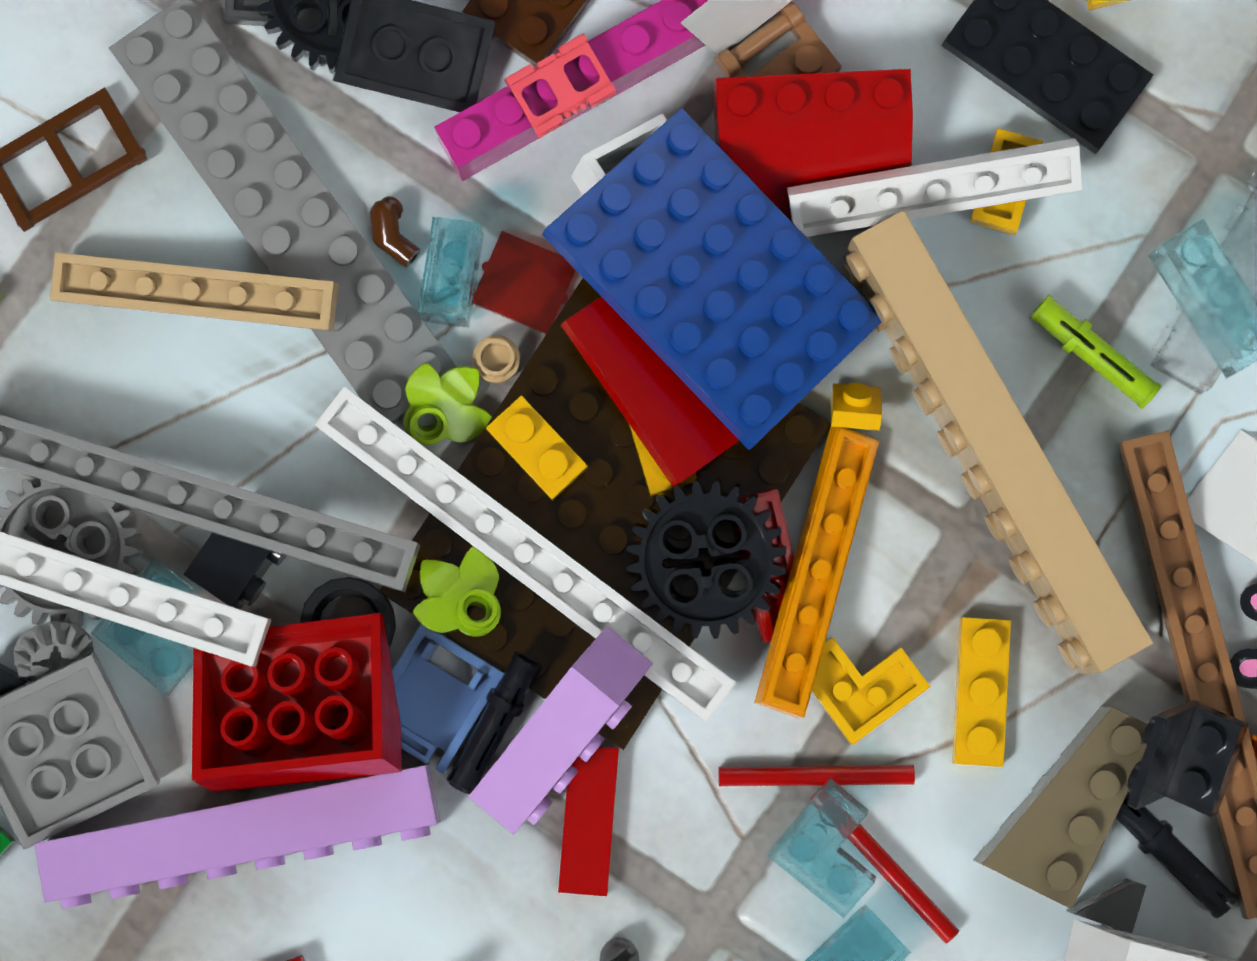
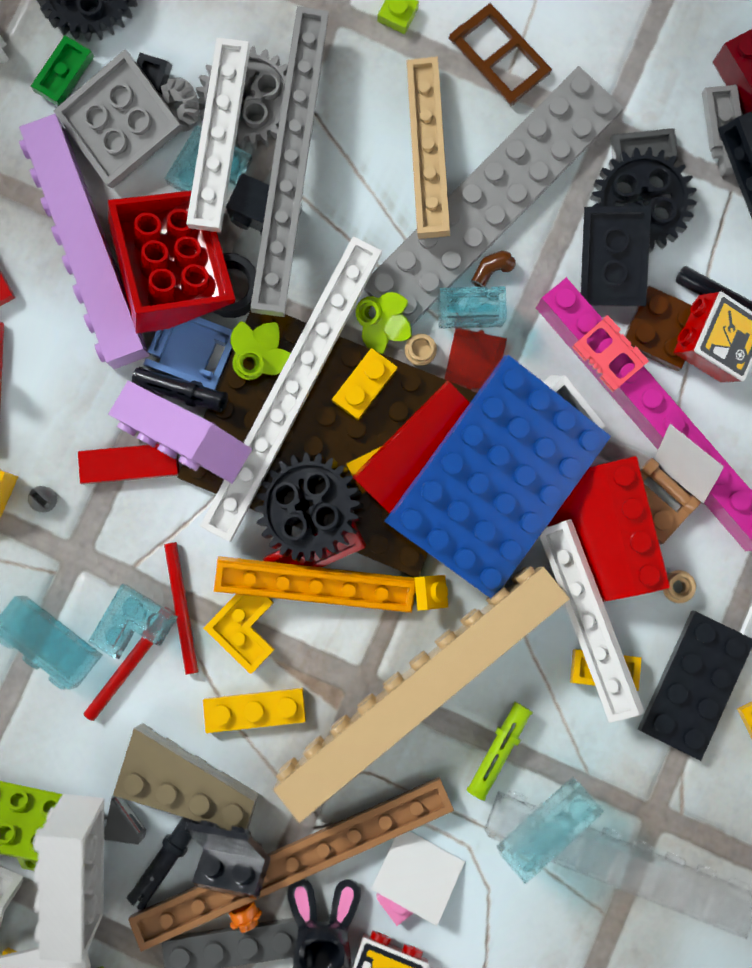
camera: 75 degrees right, 0 degrees up
(906, 42) = (688, 590): none -> tan plate

